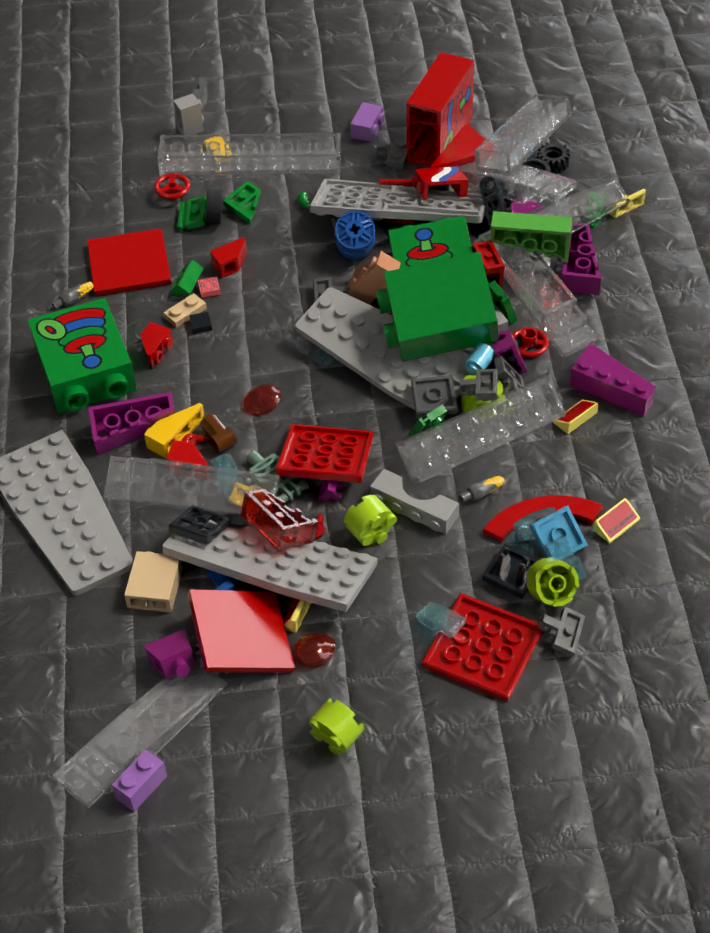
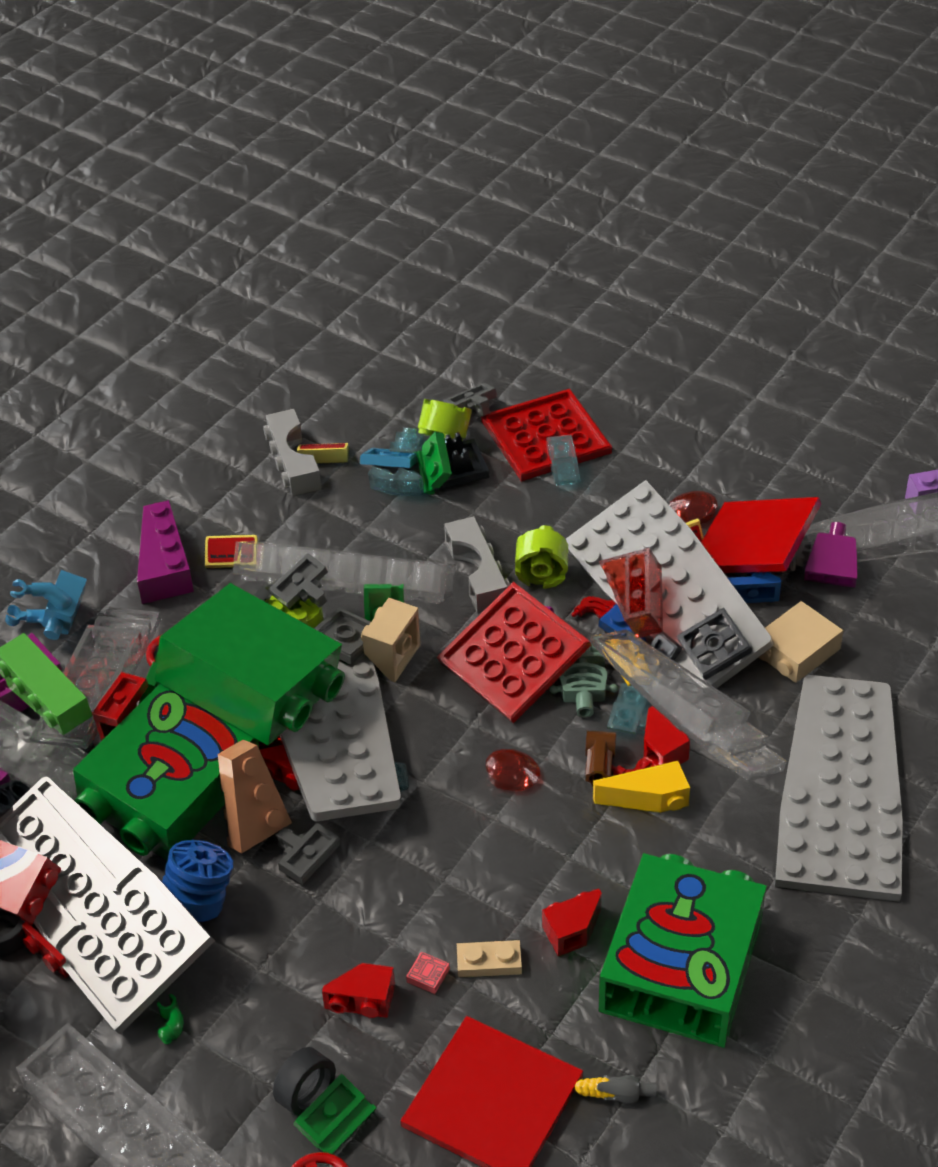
camera: 140 degrees left, 5 degrees down
(127, 420) = (688, 825): magenta wedge -> none
(187, 279) = (447, 1003): green slope -> none
(200, 322) = (486, 924): black tile -> none
(243, 201) = (245, 1084): green wing -> none
(335, 726) = (735, 429): lime brick -> none
(402, 406) = (392, 637): none -> tan slope
(481, 488) = (400, 541): dark grey piece -> none
(503, 523) = (374, 501): red tile -> none
(526, 546) = (434, 463): none -> green plate
(610, 490) = (299, 470): none -> light grey arch
(616, 309) = (62, 606): none -> dark azure torso

